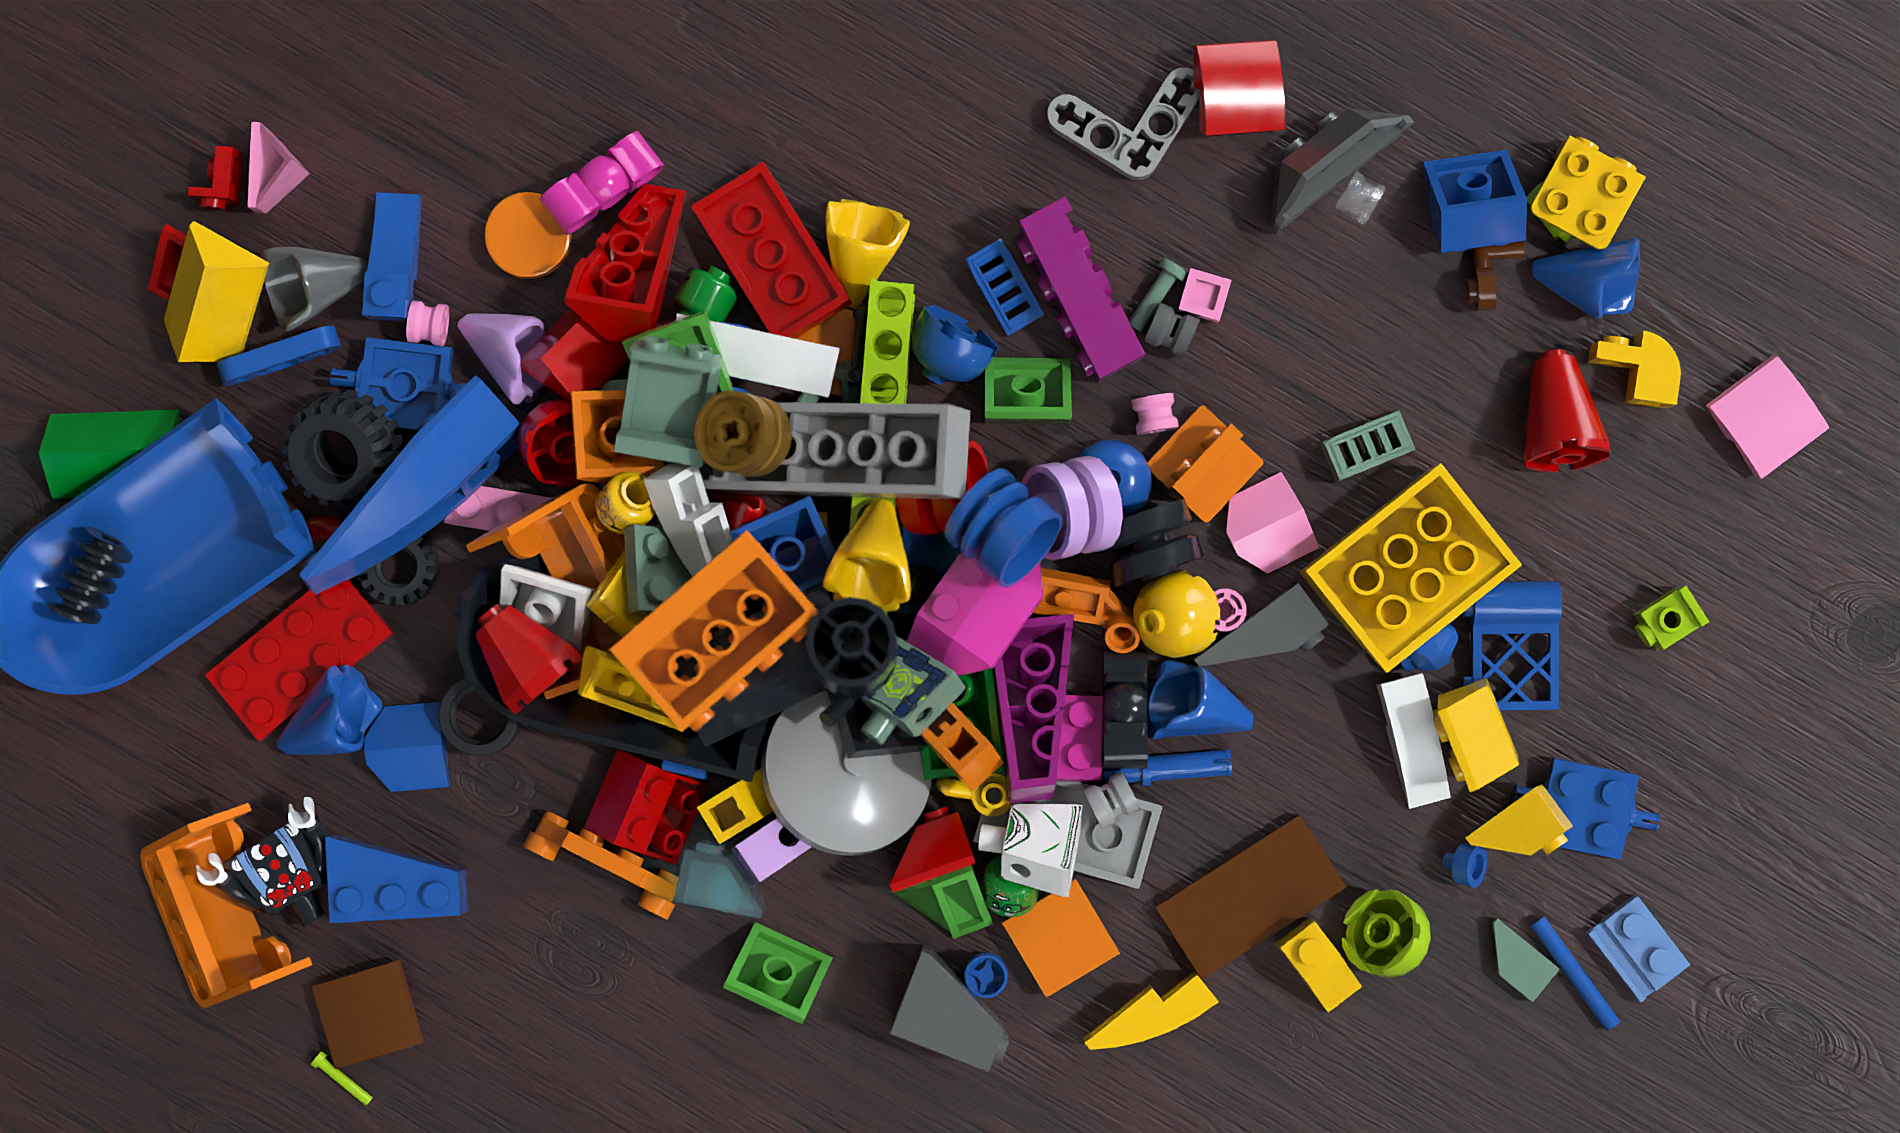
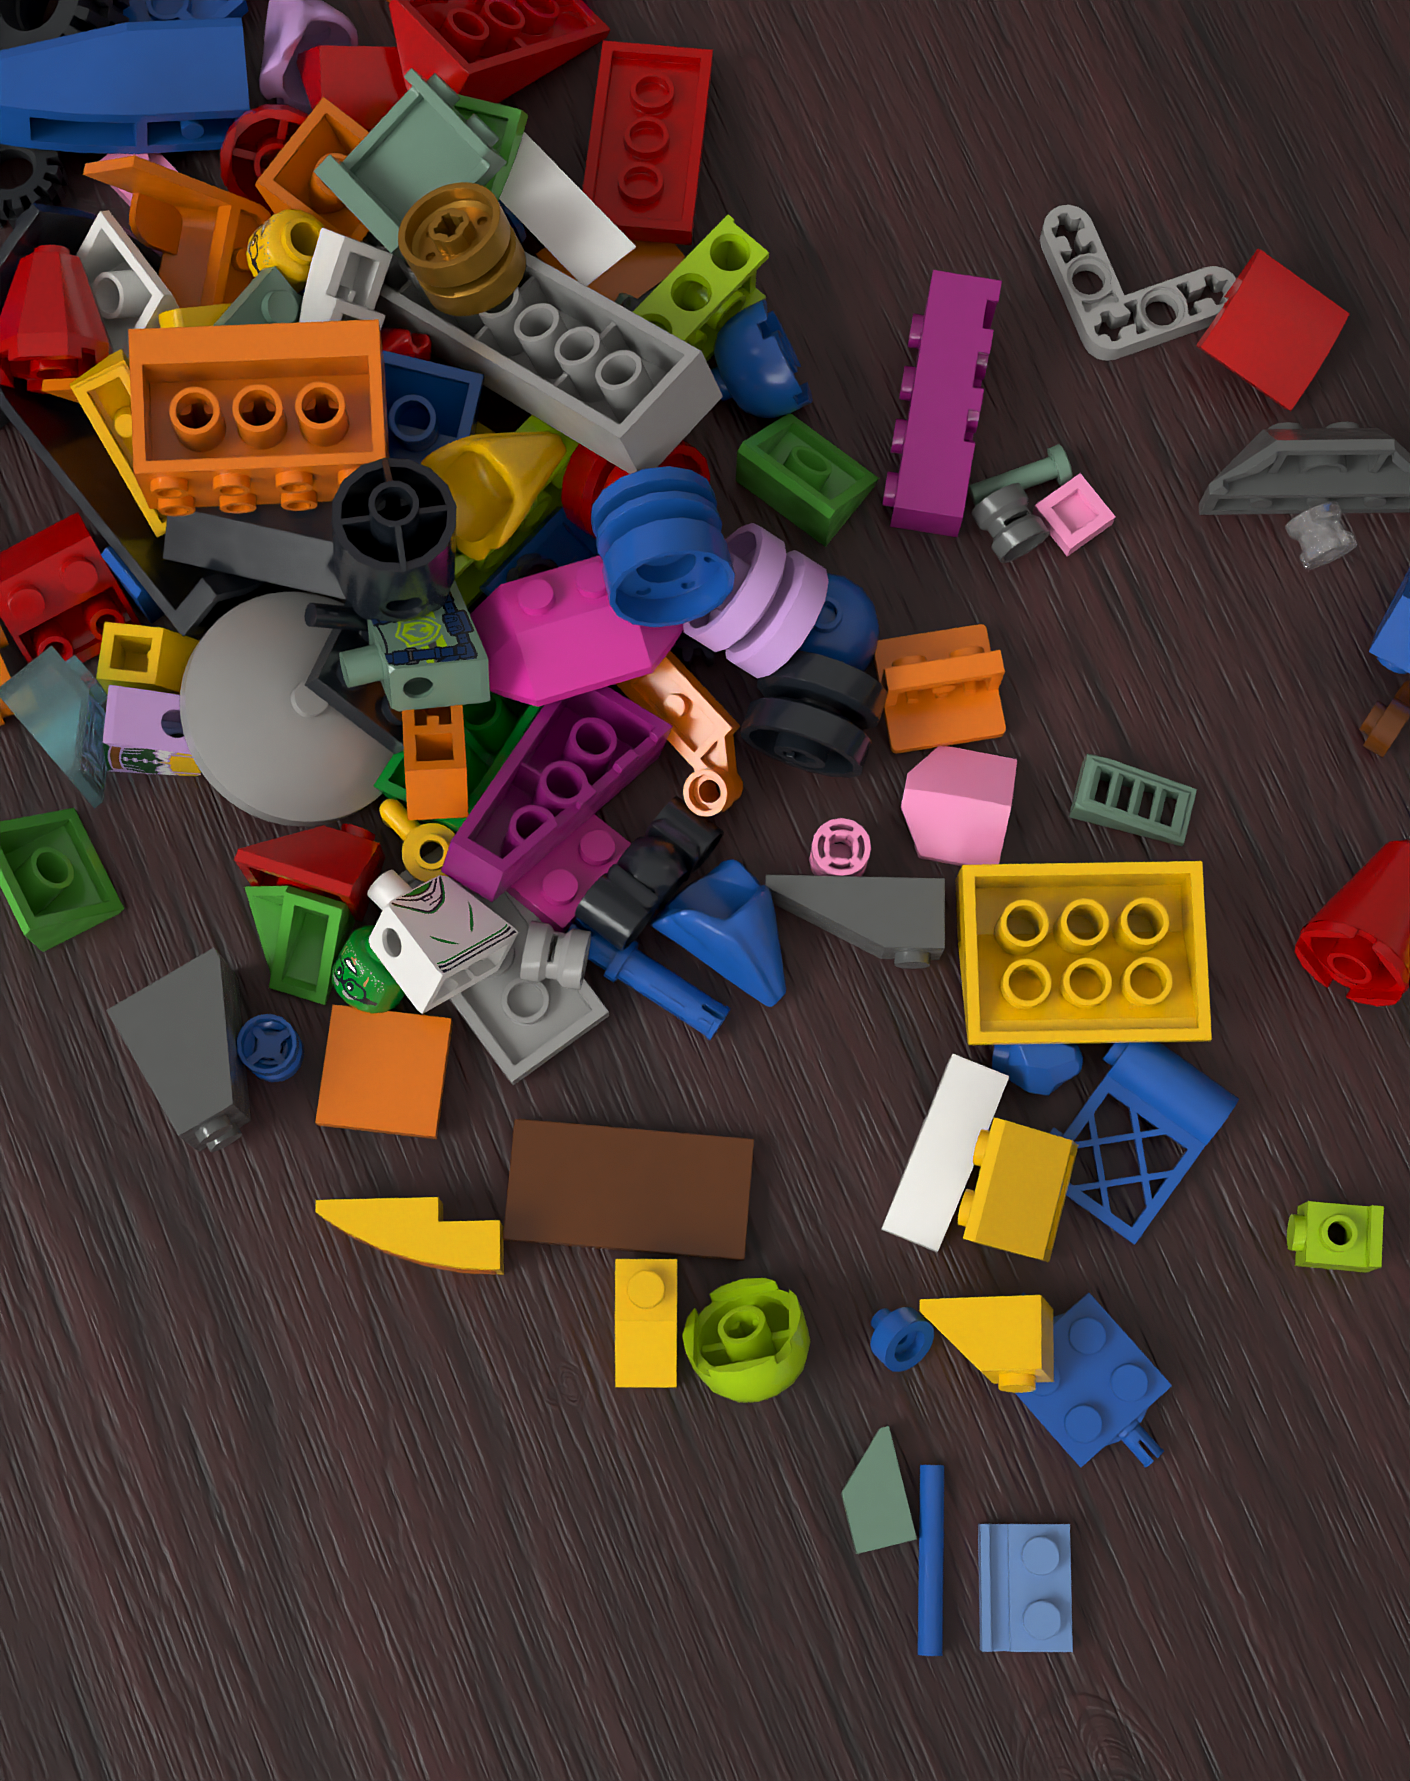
camera: 30 degrees right, 10 degrees down
(706, 292) = (555, 130): green head -> none
(861, 243) = (749, 188): yellow hat -> none
(984, 256) = (873, 317): blue slope -> none
(1154, 413) = (925, 594): bright pink wheel -> none
(1176, 614) = (783, 812): yellow cylinder -> none

